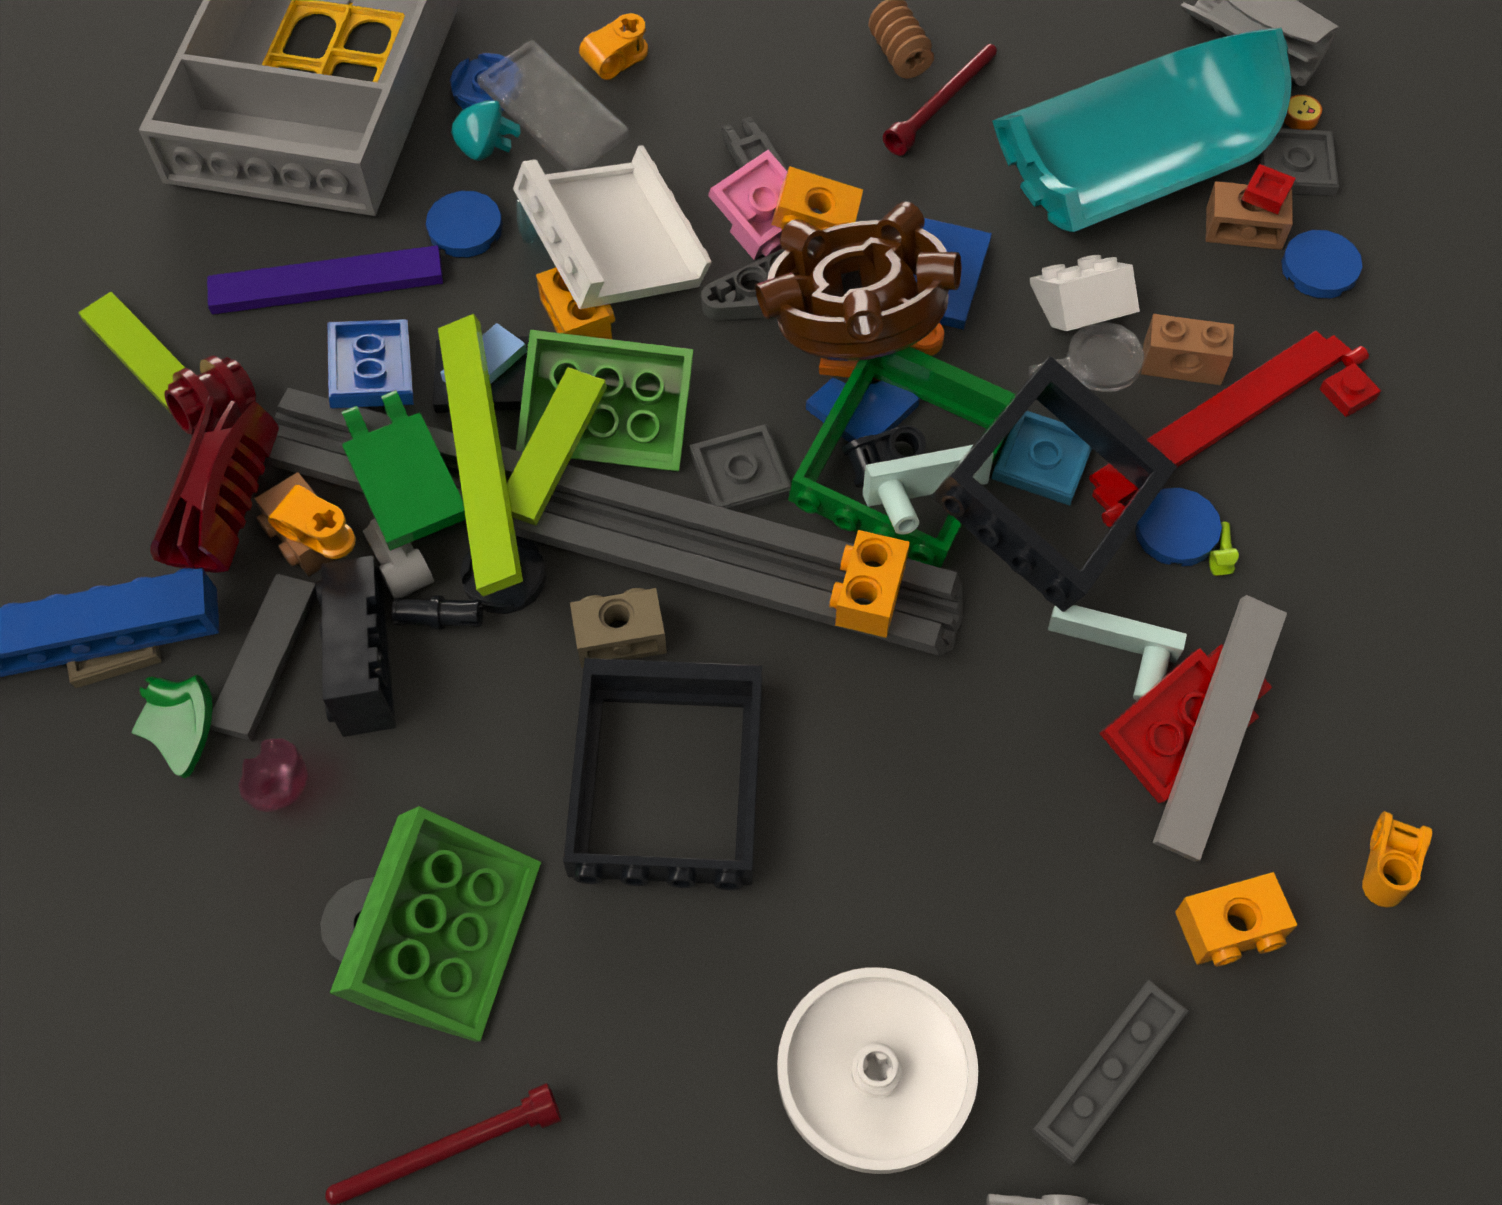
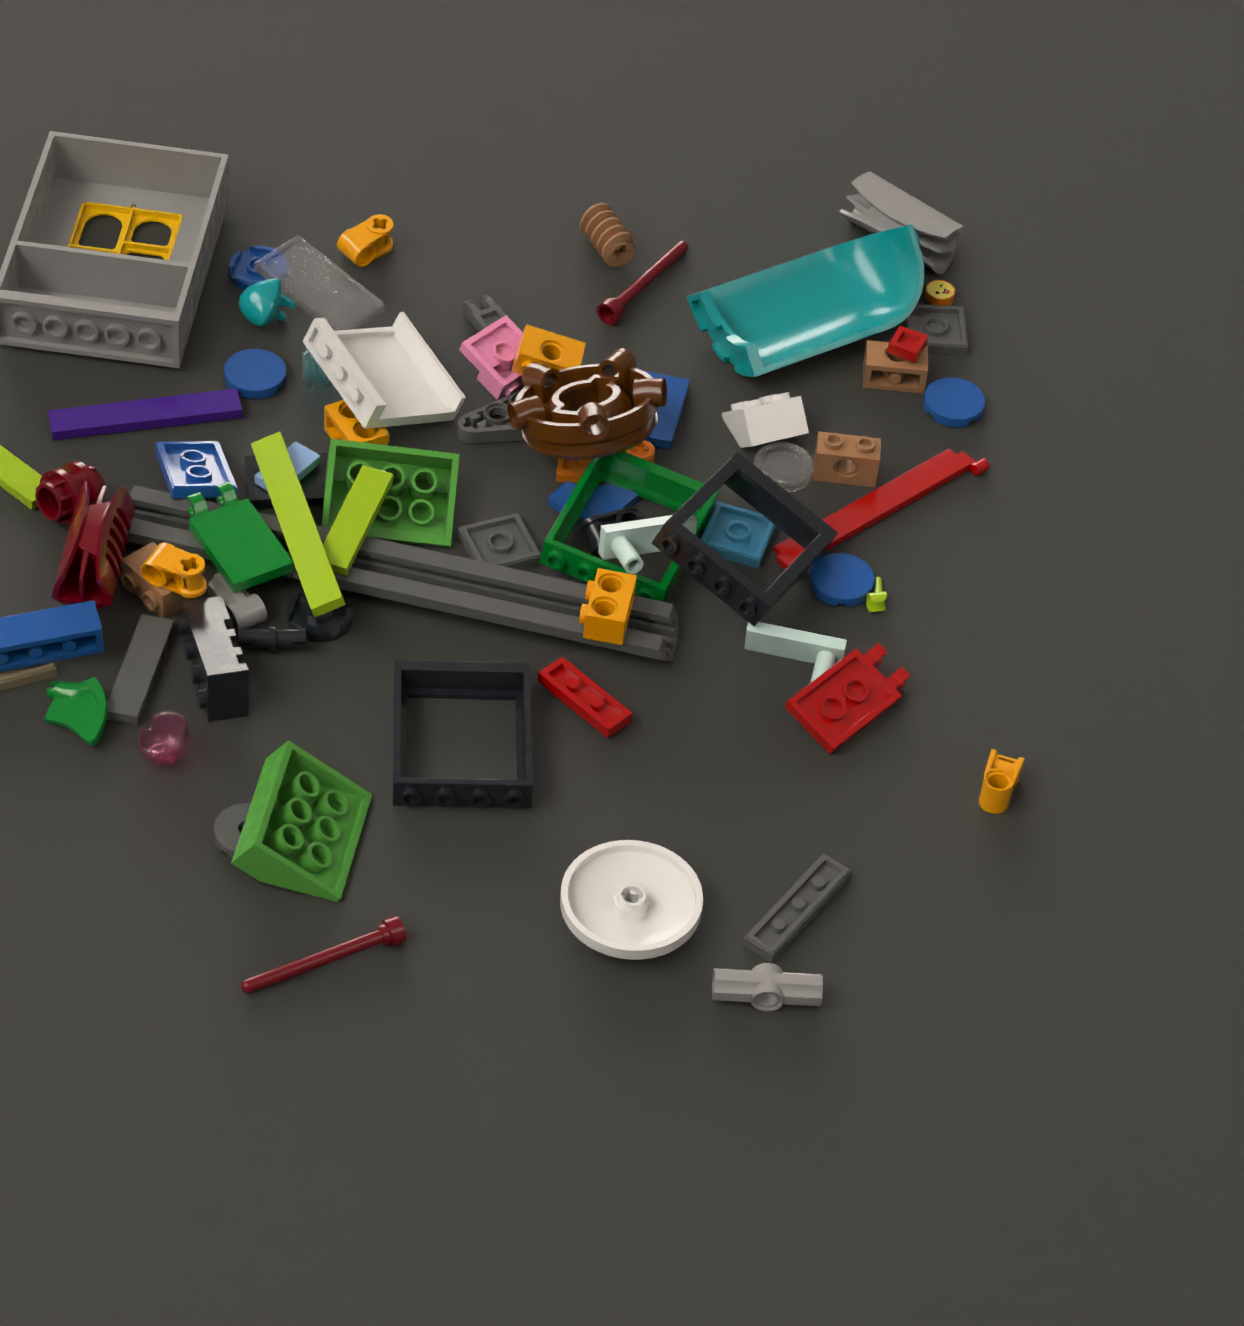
camera: 10 degrees left, 15 degrees down
(637, 639) = (415, 640): dark tan brick -> none
(834, 711) = (585, 697): none -> red plate
(1219, 729) = (872, 699): light grey tile -> none
(1255, 901) = (884, 815): light orange brick -> none
(1350, 390) = (974, 489): red plate -> none

